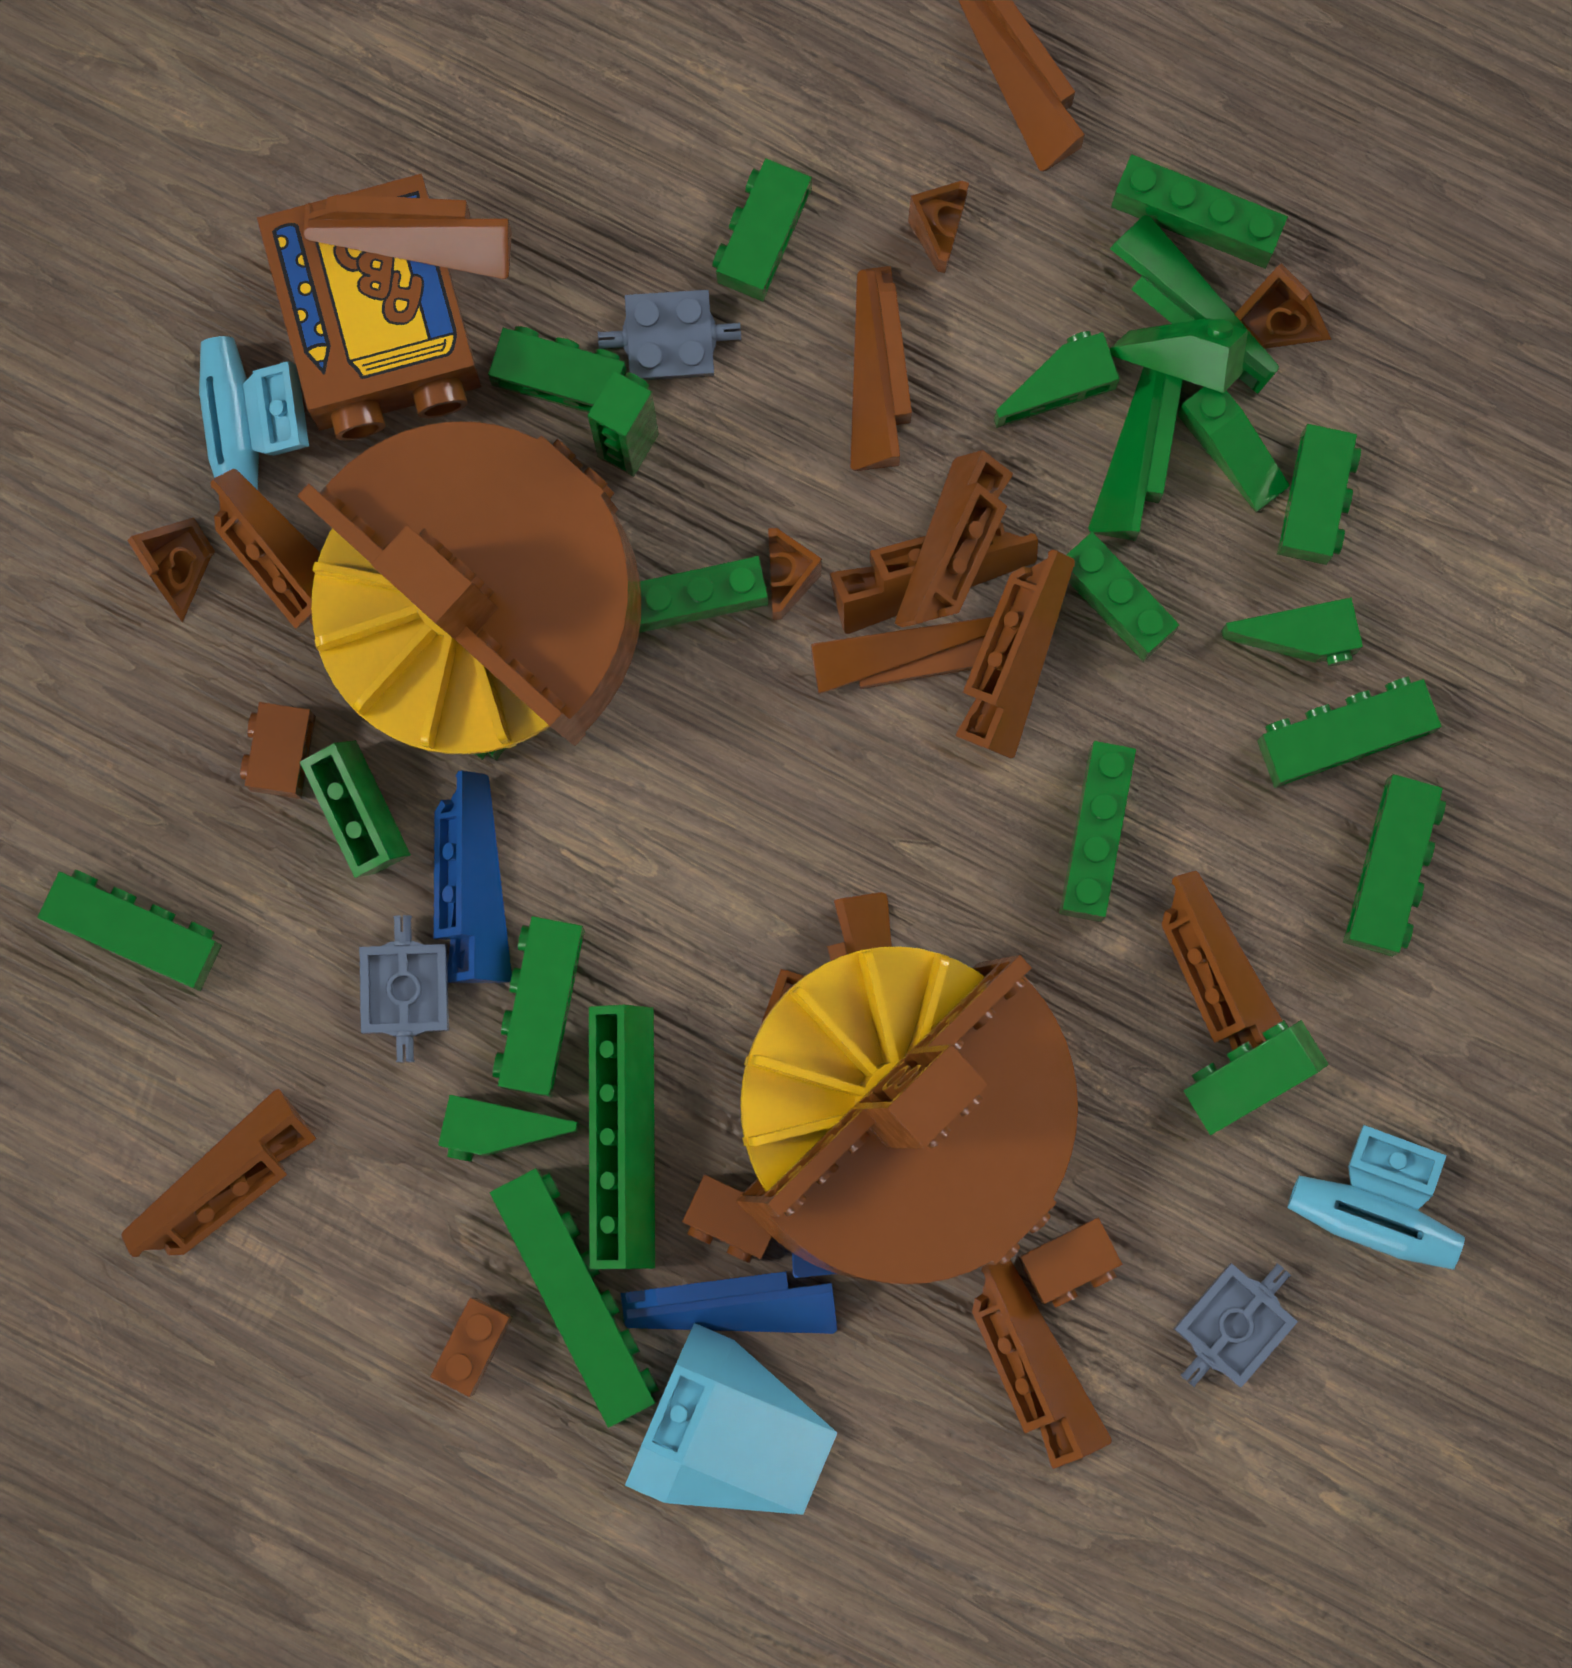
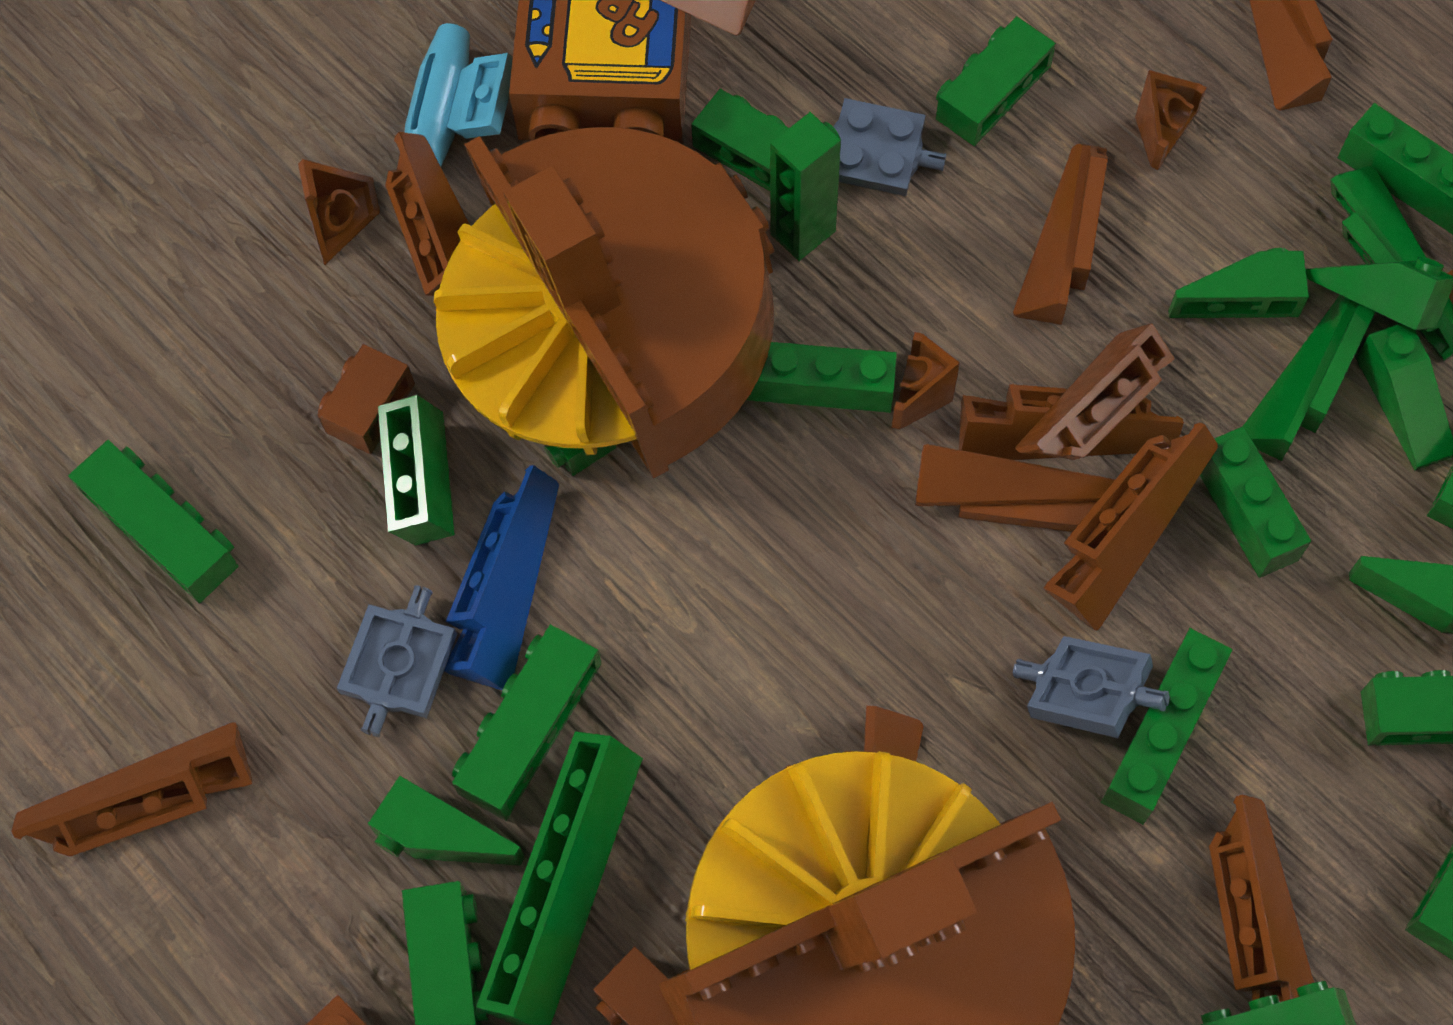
camera: 20 degrees right, 15 degrees down
(1022, 818) = (1090, 686): none -> sand blue plate

